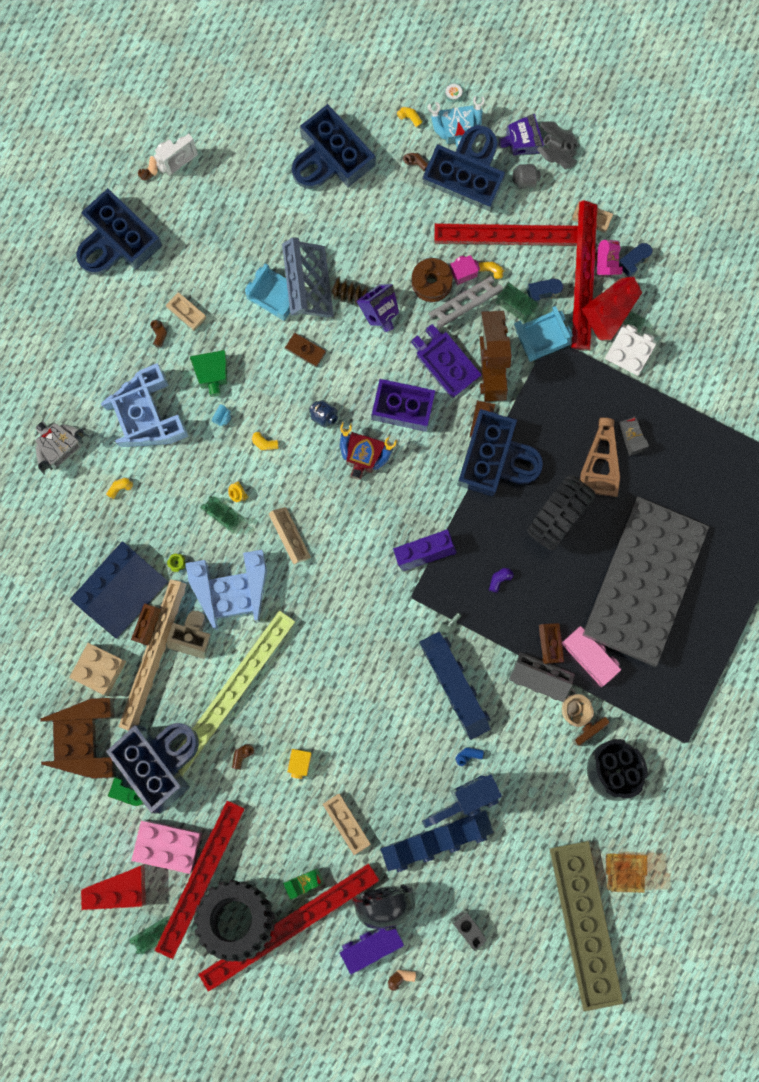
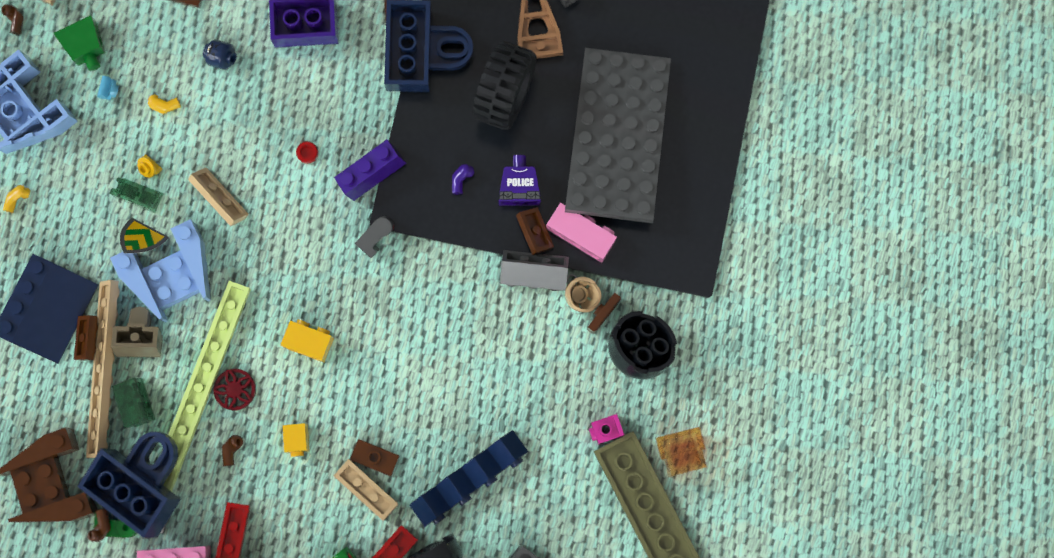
camera: 15 degrees left, 0 degrees up
(97, 669) = (45, 401): tan brick -> none
(117, 792) = (102, 528): none -> reddish brown arm
(171, 691) = (133, 402): none -> clear green hinge
(176, 567) = (97, 257): lime plate -> none
(214, 552) = (139, 238): none -> sticker
(258, 704) = (234, 389): none -> dark red wheel
(331, 681) = (307, 340): none -> yellow brick
(361, 798) = (374, 457): none -> reddish brown plate
(364, 452) = (275, 83): torso -> none
(374, 518) = (307, 152): none -> red tile
(419, 603) = (378, 230): none -> dark grey leg
(445, 628) = (416, 248): sand green hand -> none
(459, 693) = (443, 306): dark blue brick -> none
(468, 753) = (477, 377): blue arm -> none
(469, 799) = (488, 419): dark blue brick -> none
(549, 599) = (519, 185): none -> dark purple torso
(572, 827) = (615, 429): none -> dark pink brick

